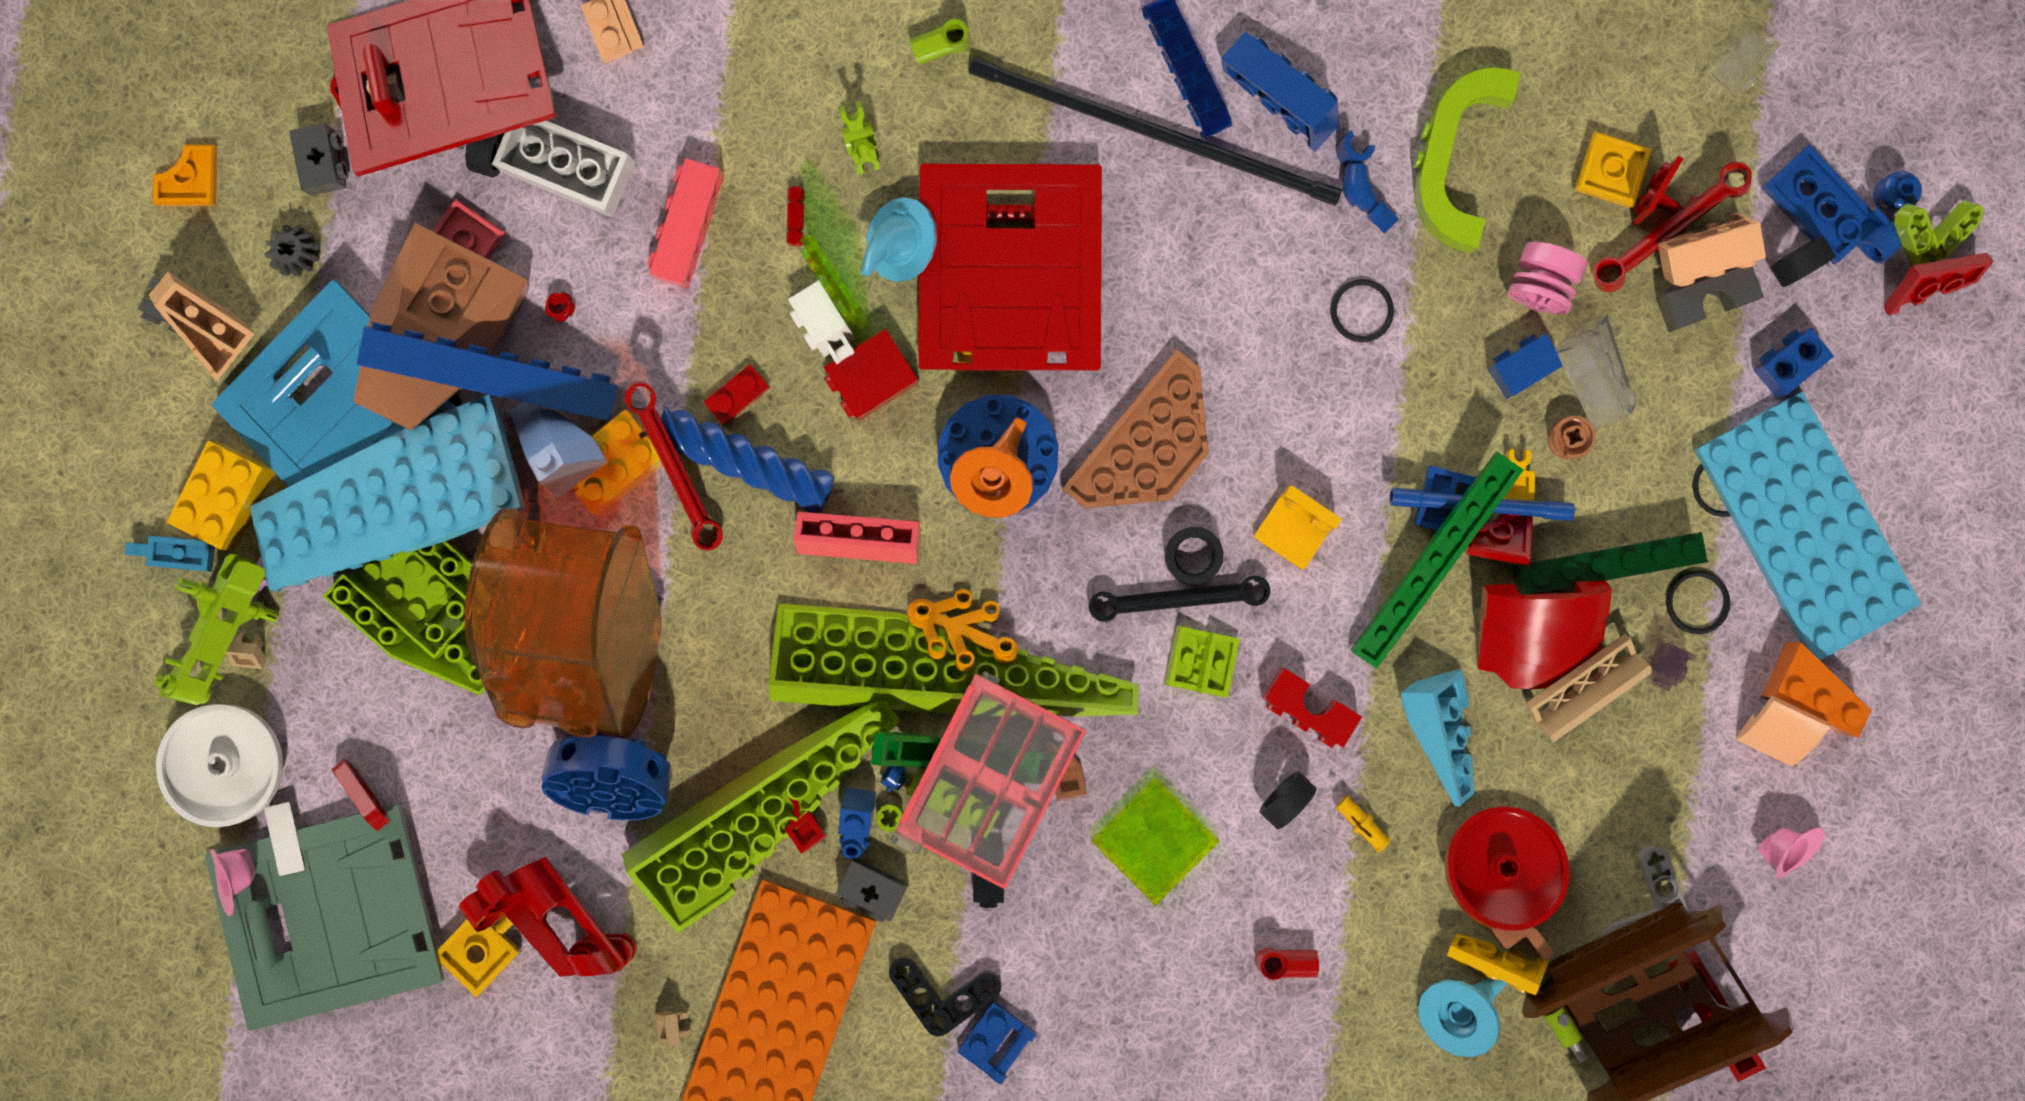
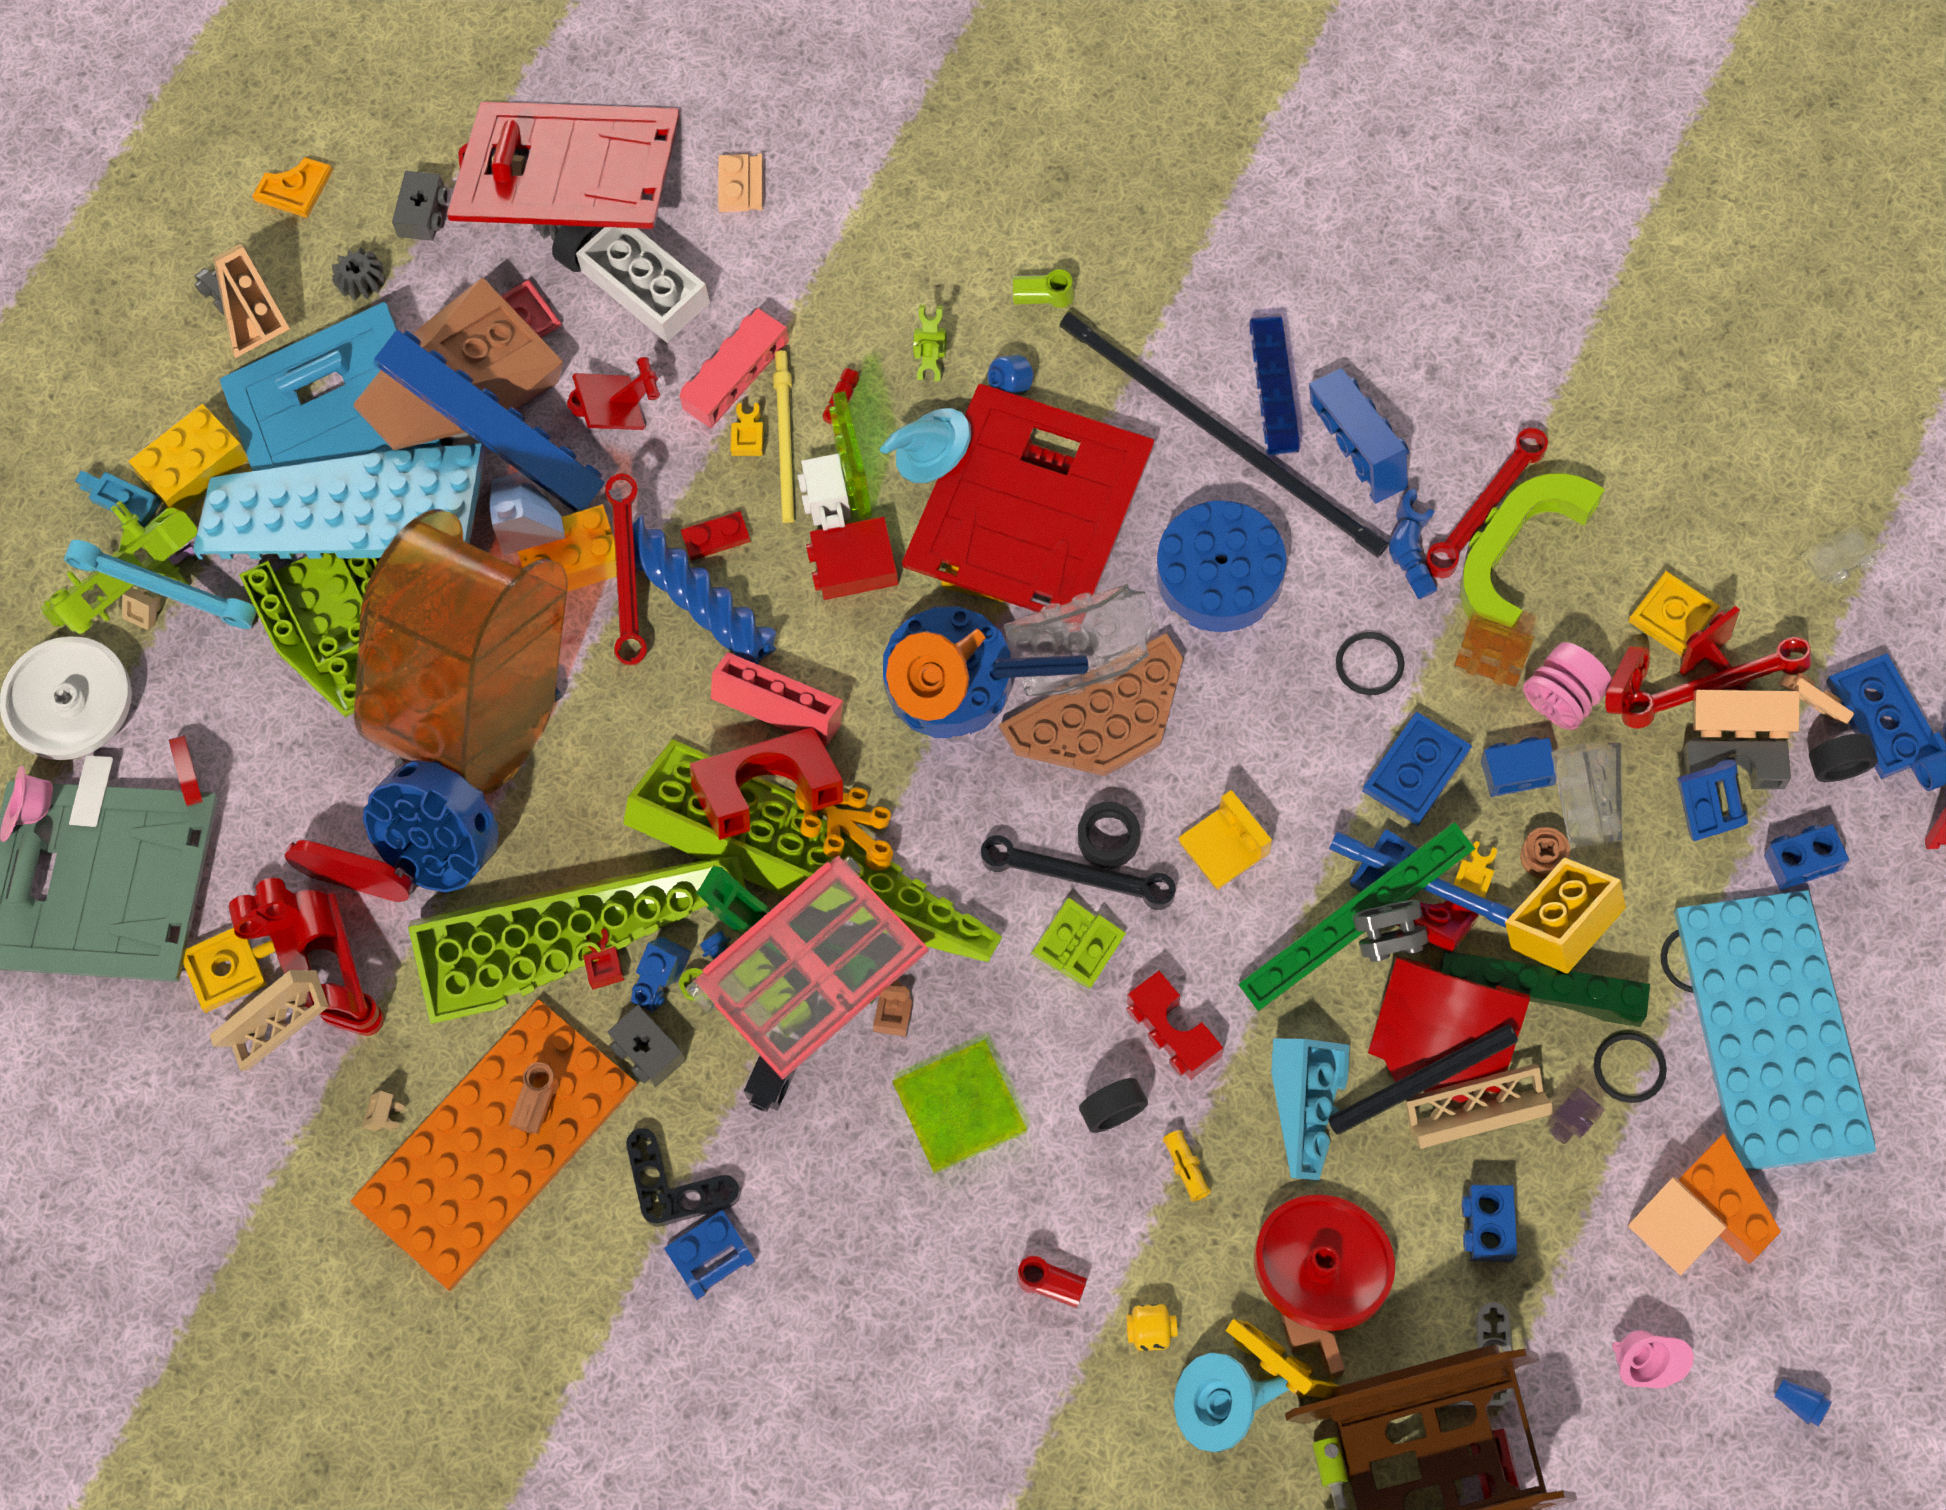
camera: 20 degrees right, 20 degrees down
(253, 636) = (90, 558): none -> medium azure piece
(544, 987) = (271, 1008): none -> tan fence
(548, 832) = (348, 870): none -> red tile
(587, 297) = (614, 399): none -> red plate
(726, 286) = (748, 434): none -> yellow plate
(736, 222) = (782, 383): none -> light yellow bar
(799, 976) = (533, 1101): none -> nougat piece
(897, 586) = (793, 756): none -> red arch
(944, 143) = (1011, 374): none -> blue head
(1083, 428) = (1040, 666): none -> dark blue axle
(1111, 394) = (1105, 627): none -> clear slope
(1208, 237) = (1220, 565): none -> blue piece
(1382, 970) = (1151, 1327): none -> yellow head
(1415, 116) = (1486, 502): none -> red piece
(1437, 398) = (1417, 768): none -> blue plate
(1472, 257) = (1496, 642): none -> clear orange plate
(1473, 567) = (1380, 945): none -> dark grey brick
(1540, 685) = (1423, 1079): none -> black axle
(1596, 253) = (1627, 680): none -> red beam
(1613, 496) = (1565, 915): none -> yellow brick
(1636, 778) = (1499, 1224): none -> blue brick
(1694, 344) = (1702, 801): none -> blue plate
(1771, 213) = (1825, 702): none -> light nougat plate
(1922, 837) = (1804, 1402): none -> blue cone

